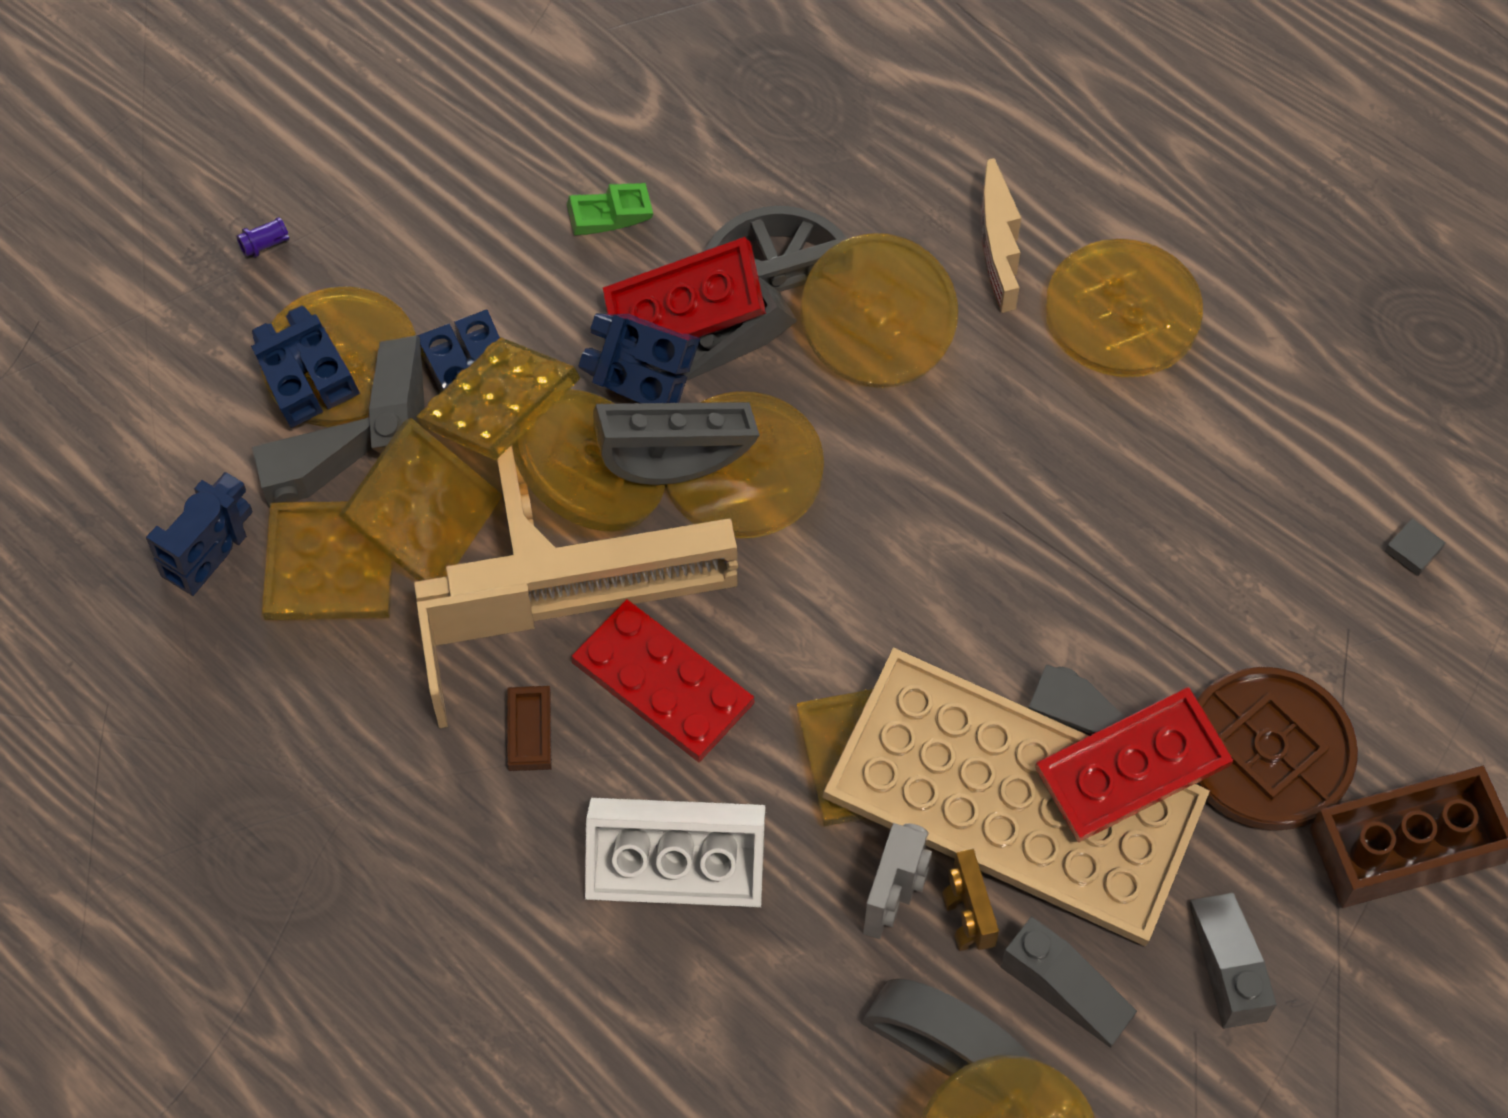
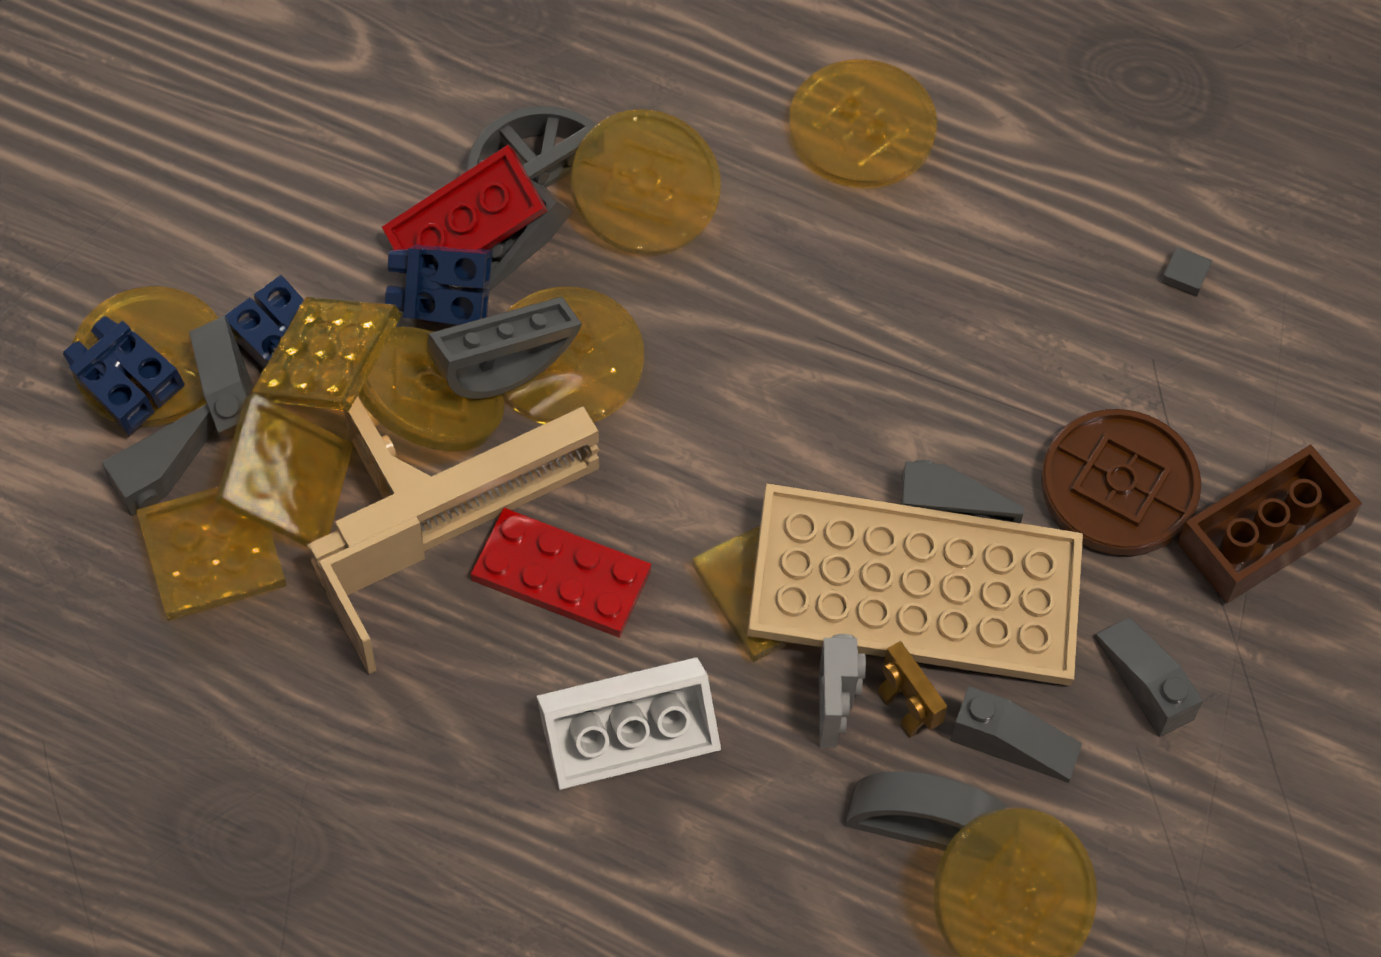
camera: 20 degrees left, 0 degrees up
(201, 534) = (83, 559): dark blue hips -> none
(262, 237) = (33, 263): dark purple pin -> none
(529, 728) = (453, 650): reddish brown tile -> none
(617, 209) = (366, 149): bright green slope -> none
(999, 236) = (727, 78): tan slope -> none
(1133, 764) = (1013, 527): red plate -> none

